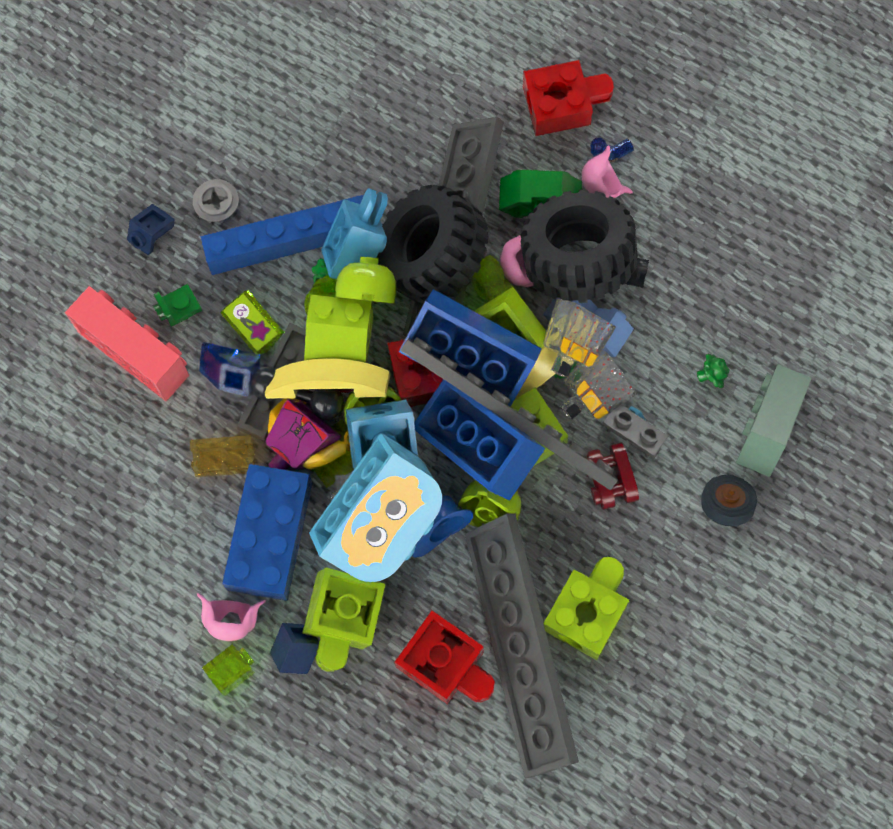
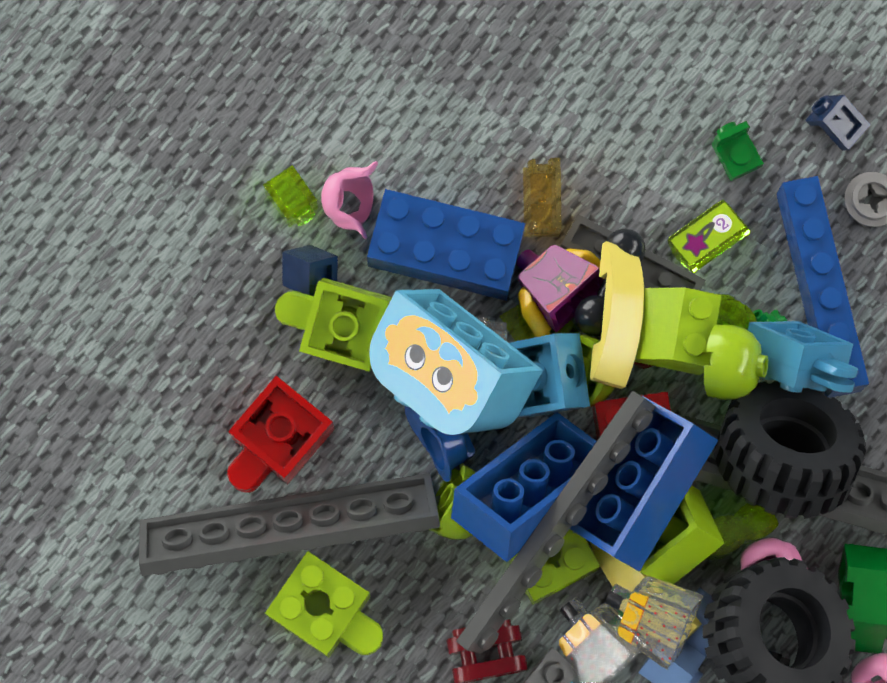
camera: 90 degrees right, 5 degrees up
(128, 343) = (685, 90): coral brick -> none
(228, 368) = (650, 207): clear blue slope -> none

